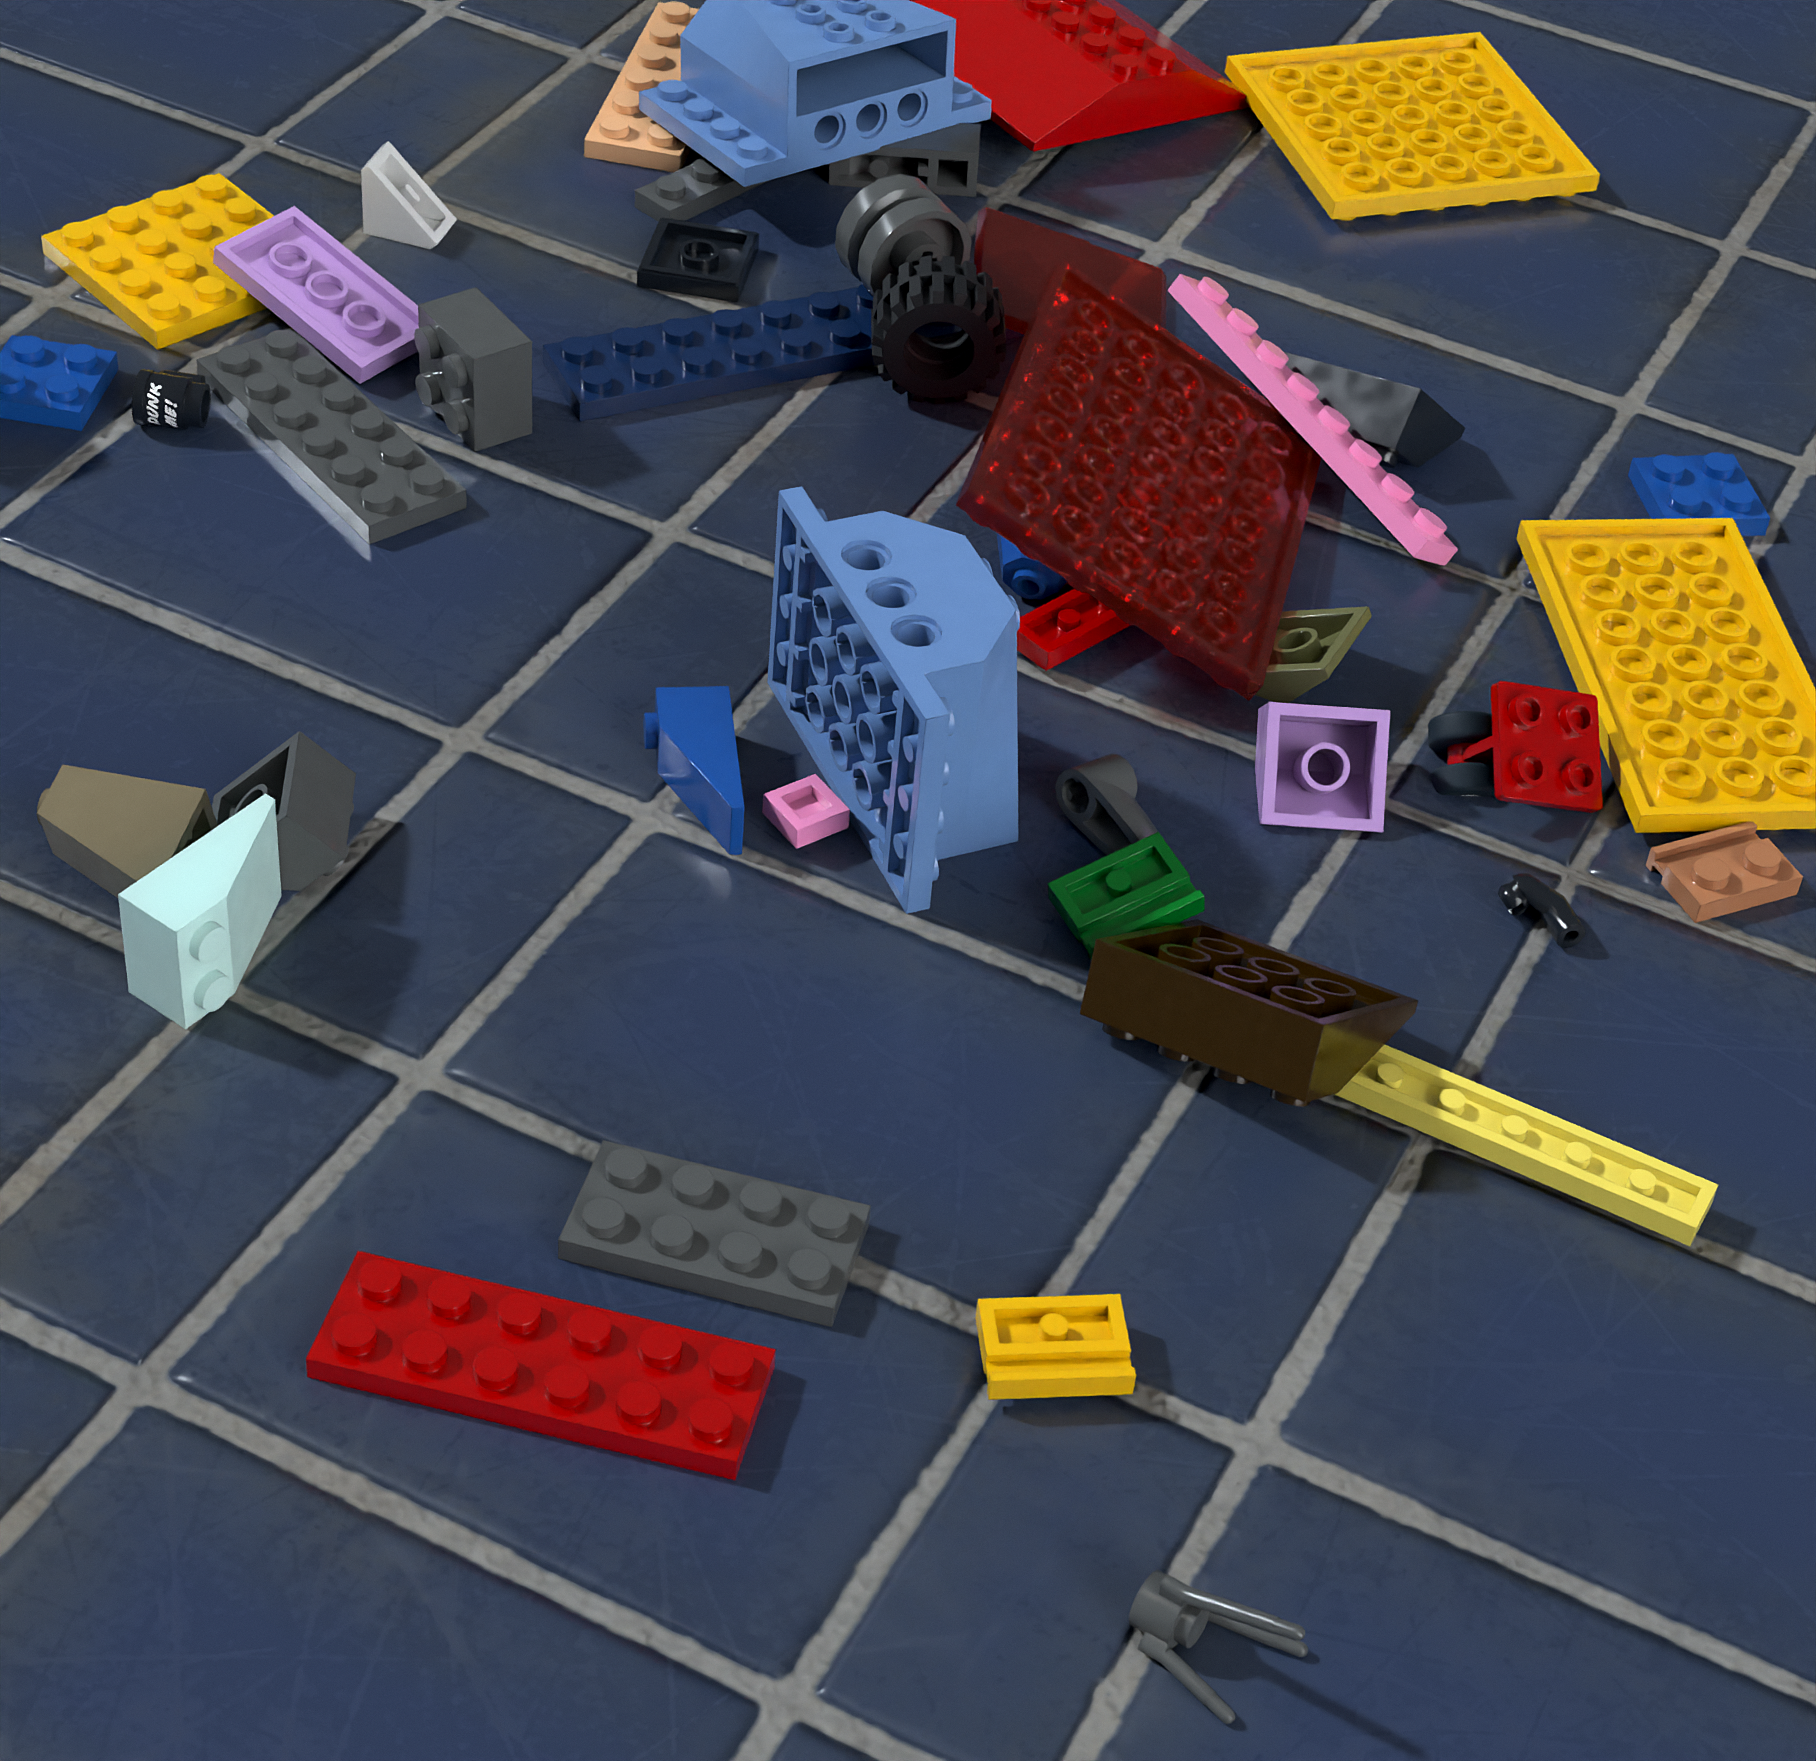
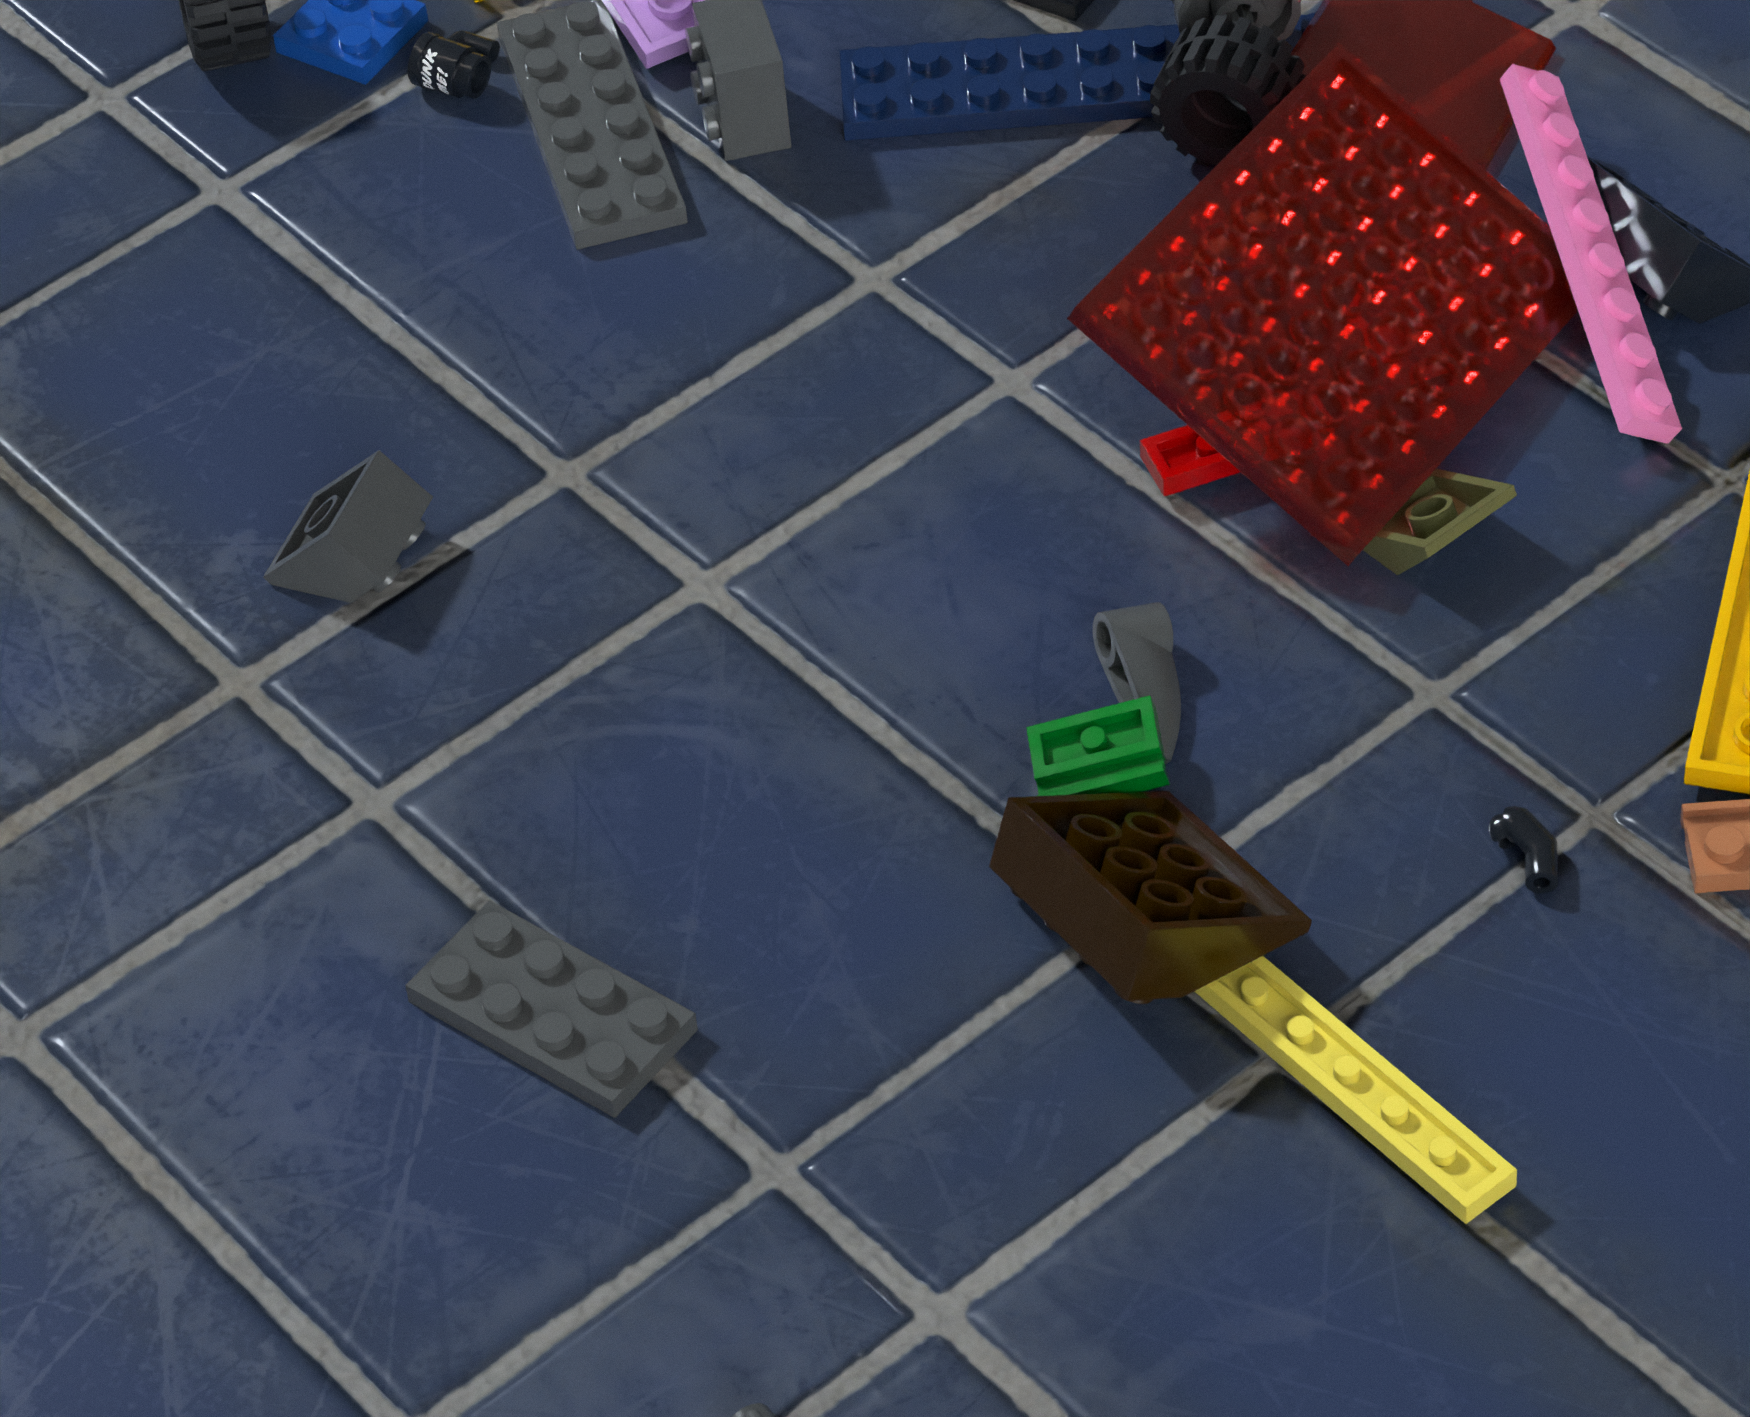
camera: 30 degrees right, 5 degrees up
(120, 824) = (213, 525): dark tan slope -> none
(202, 916) = (235, 613): light aqua slope -> none
(543, 1364) = (347, 1096): red plate -> none
(700, 757) = (769, 523): blue slope -> none
(805, 811) = (839, 608): bright pink plate -> none
(899, 683) = (954, 506): medium blue wedge -> none
(1054, 1346) = (790, 1181): yellow plate -> none
(1322, 766) = (1376, 654): lavender slope -> none
(1539, 744) = (1604, 672): red plate -> none

